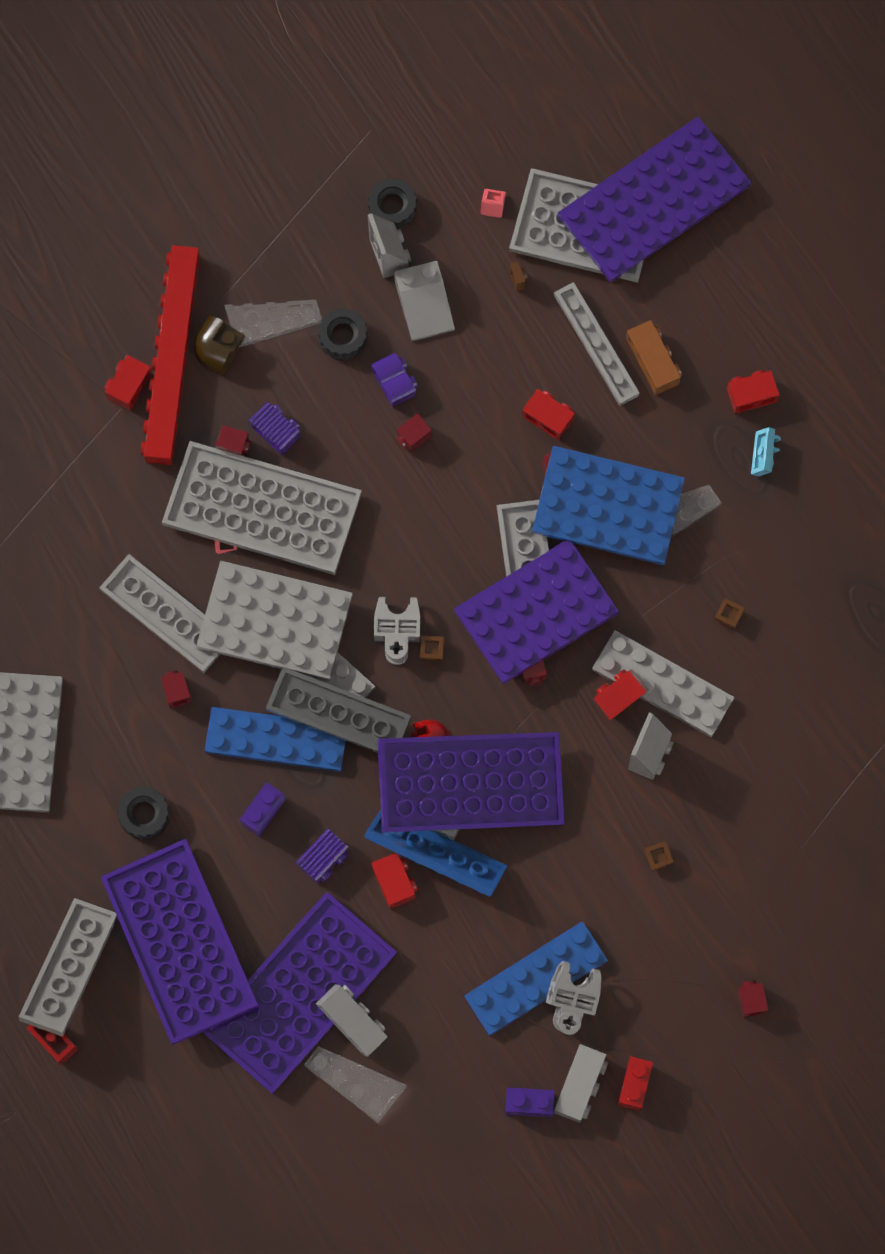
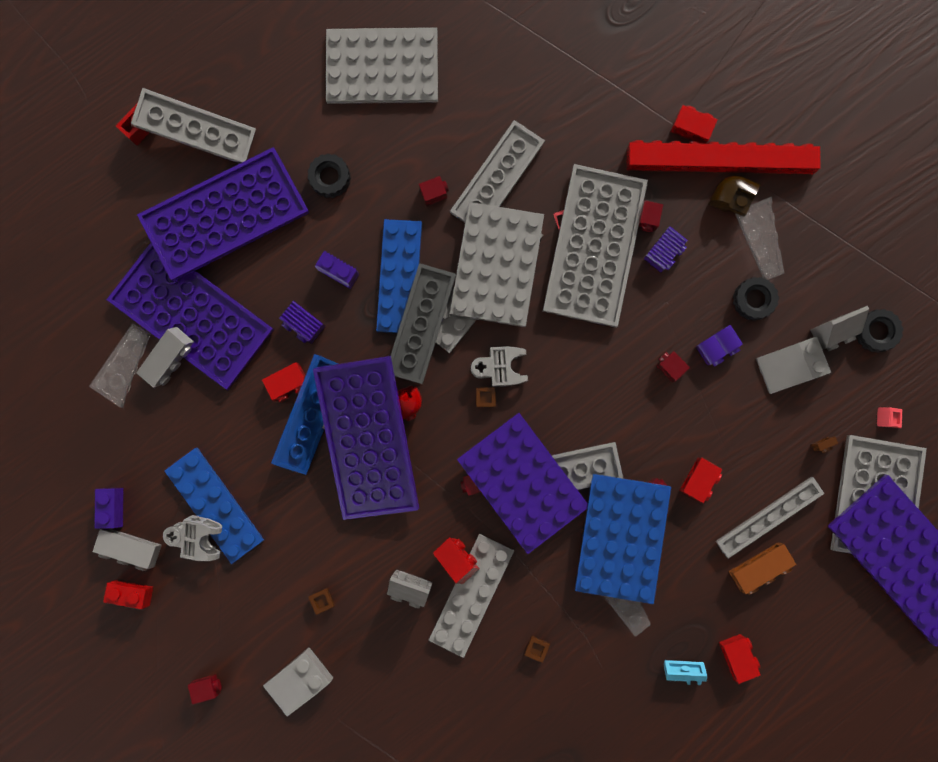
camera: 90 degrees right, 10 degrees up
(751, 890) = (298, 682): none -> light grey slope

